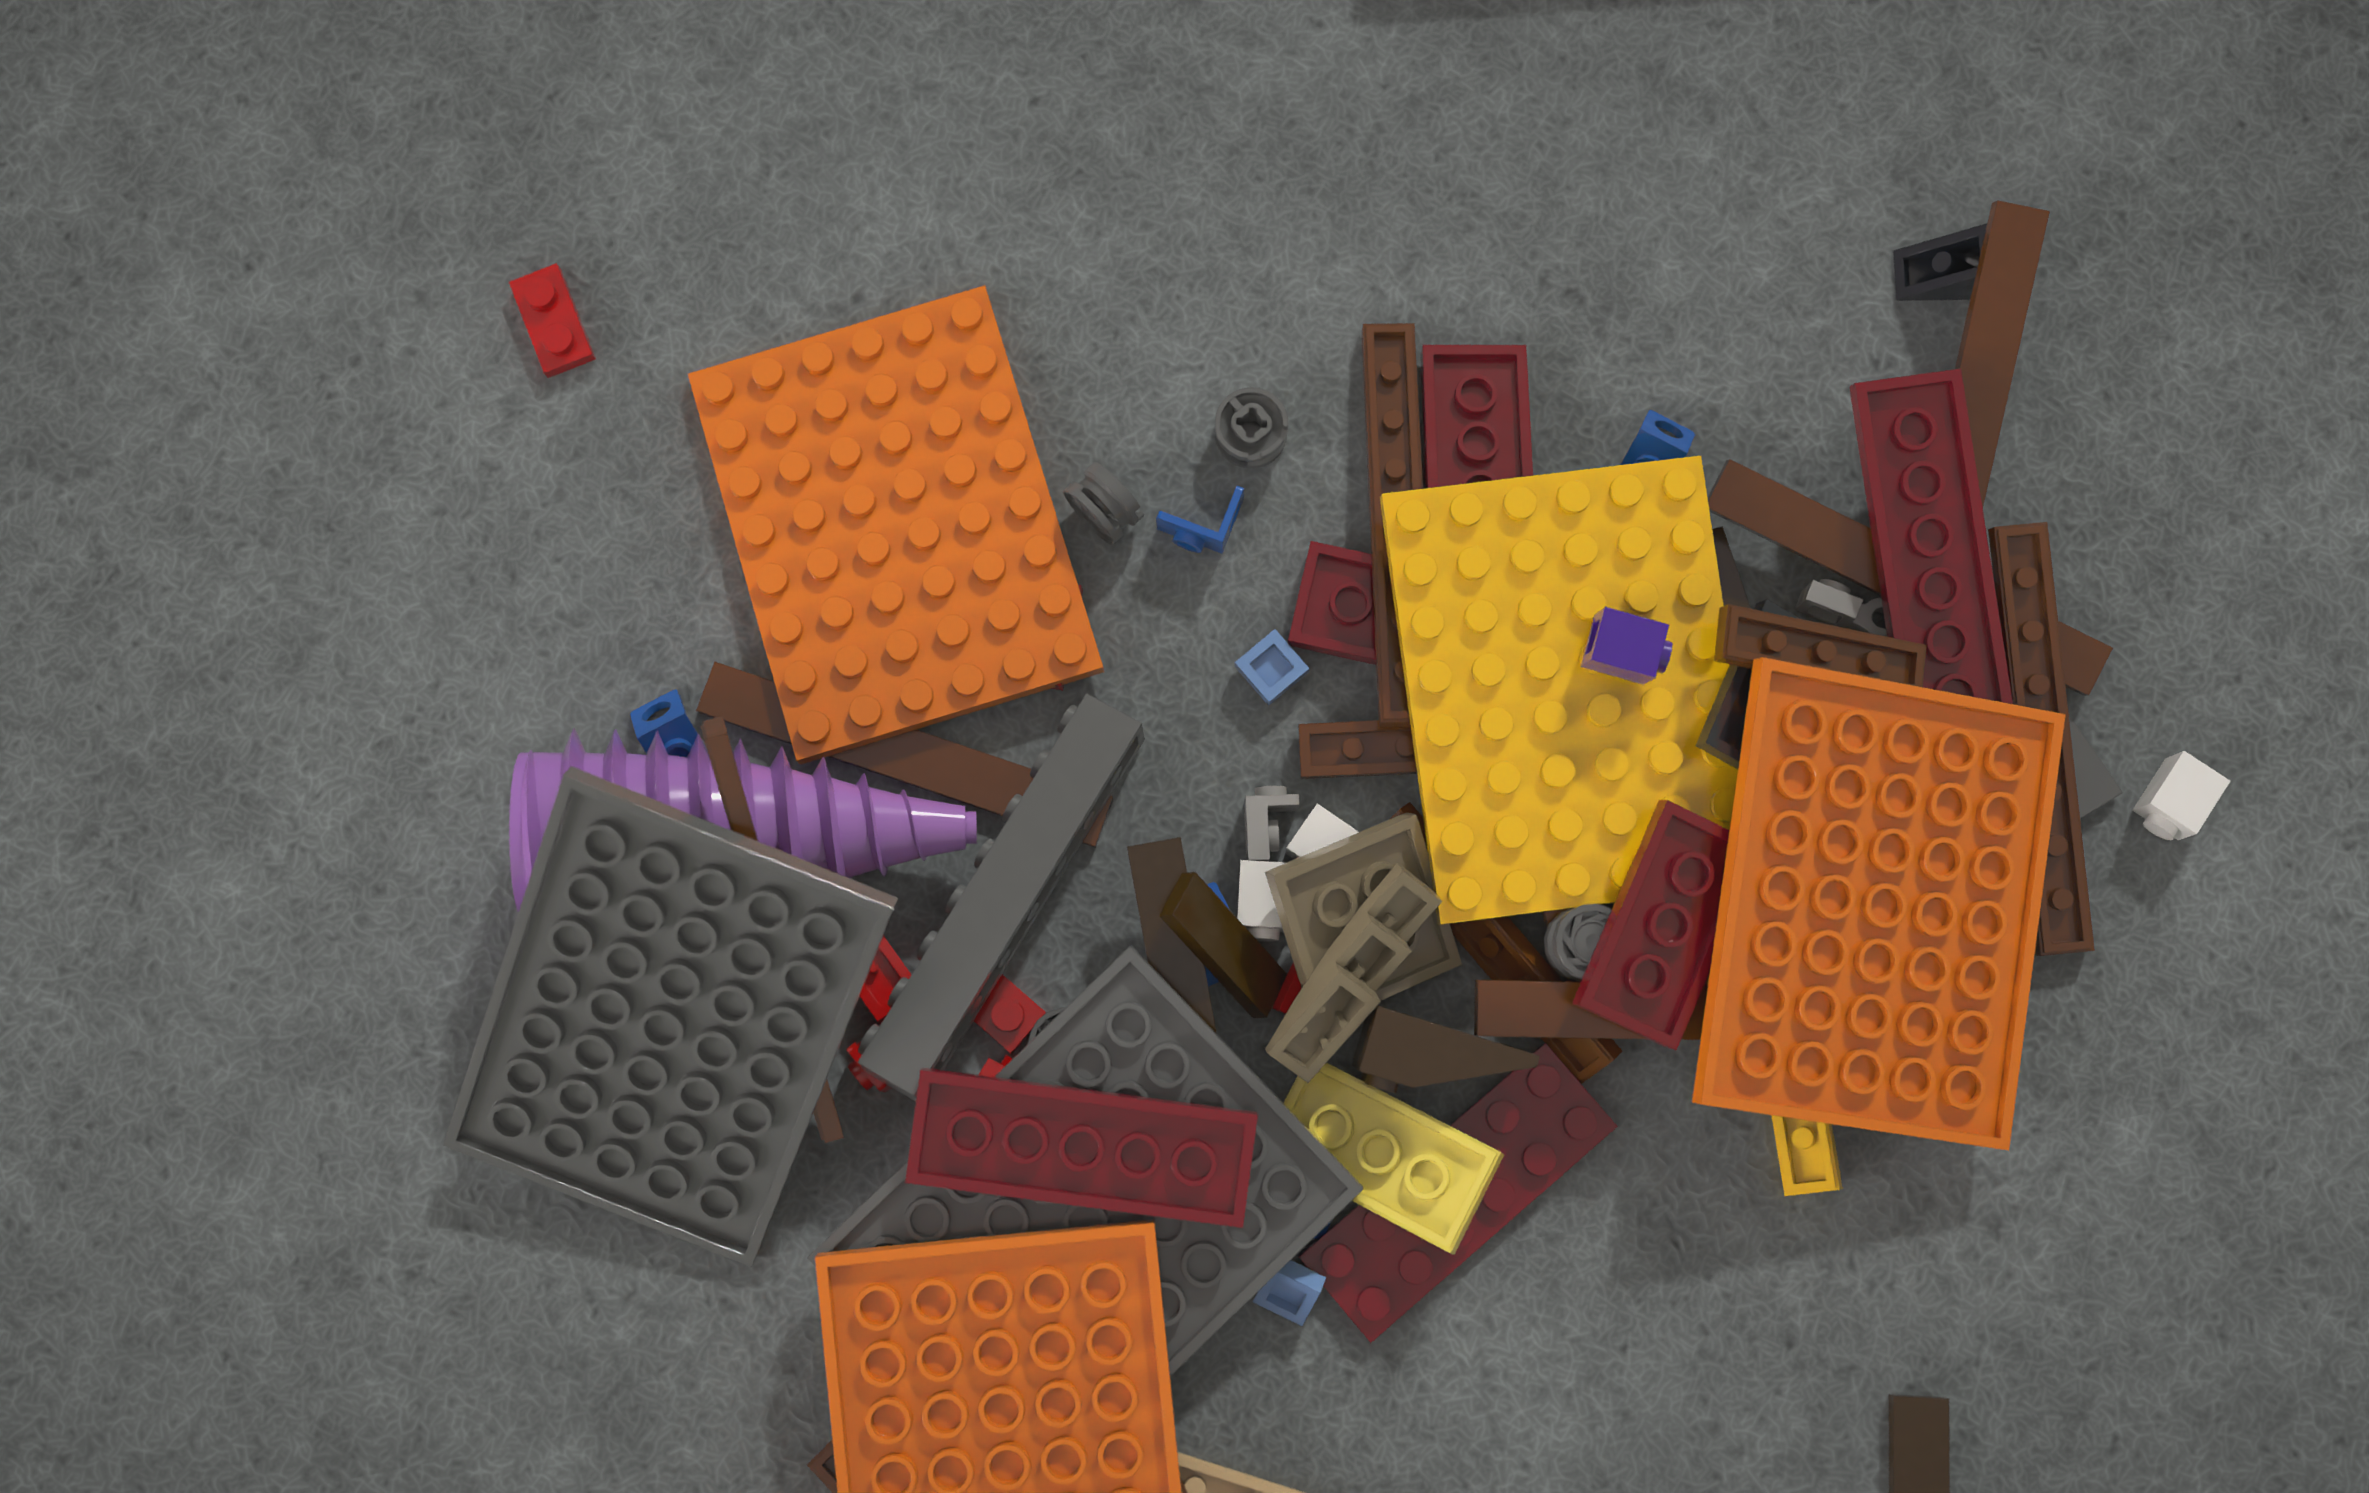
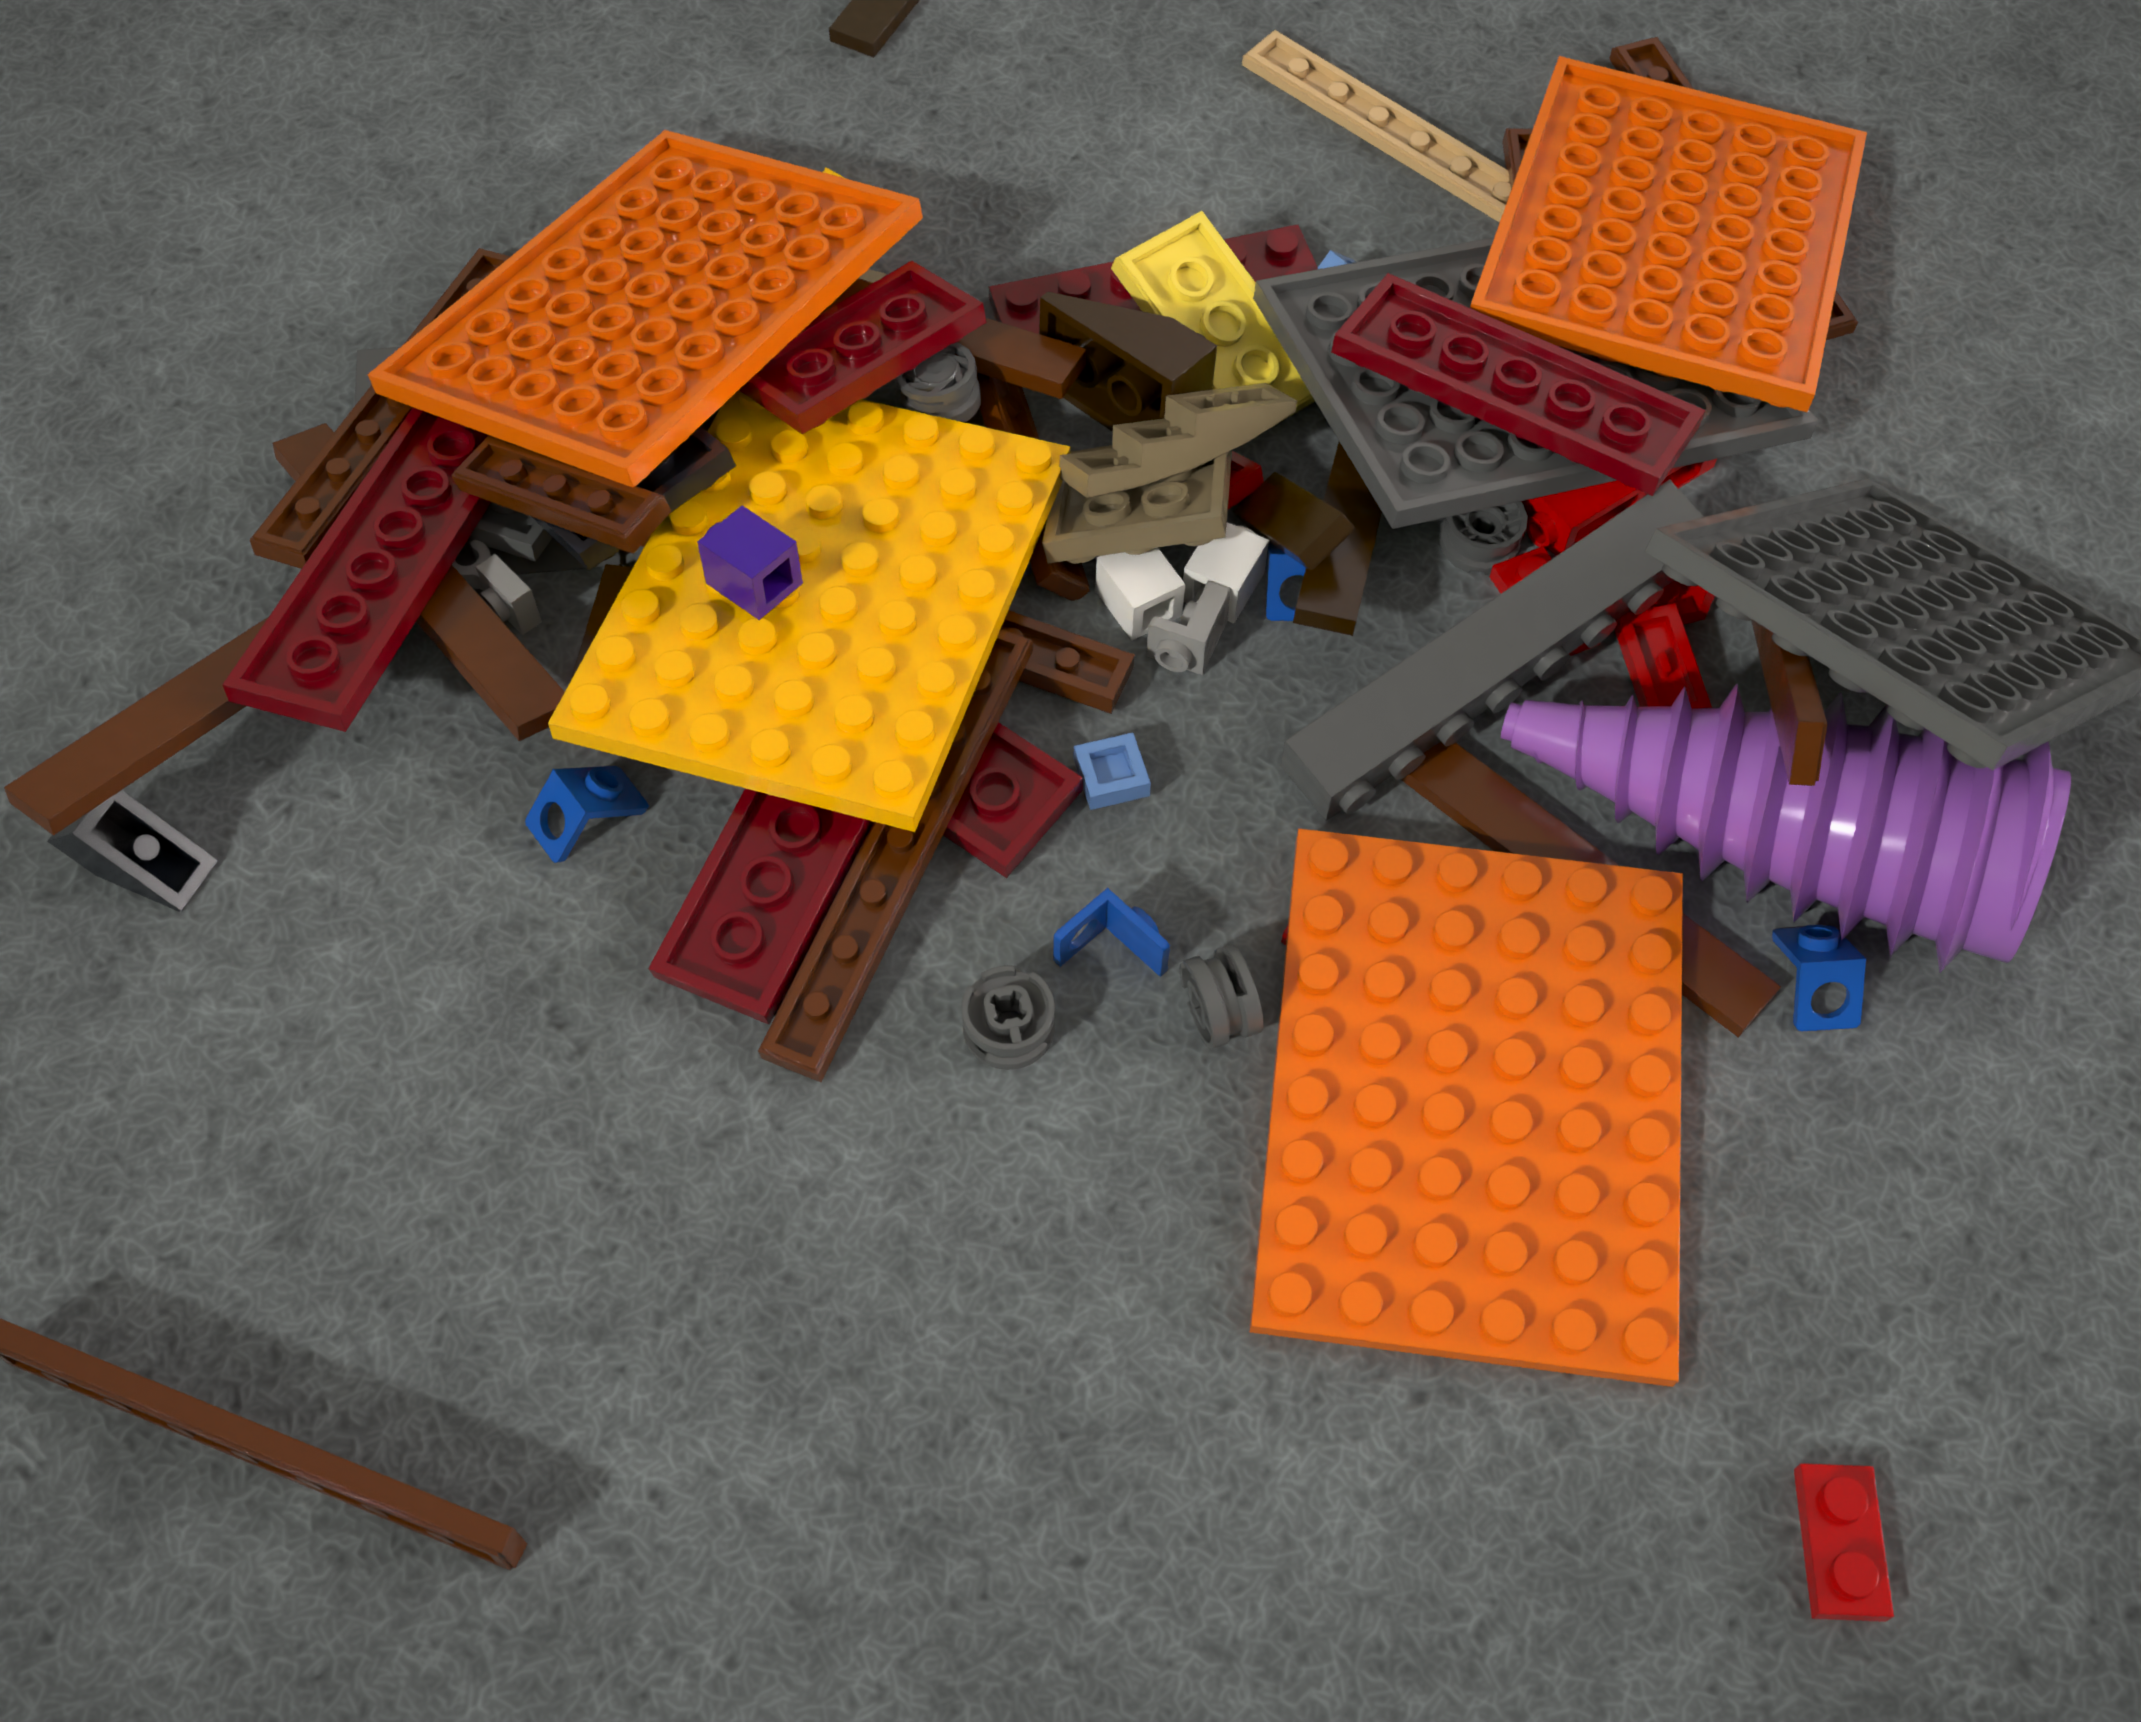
camera: 160 degrees left, 20 degrees down
(2180, 797) = (311, 321): white brick -> none

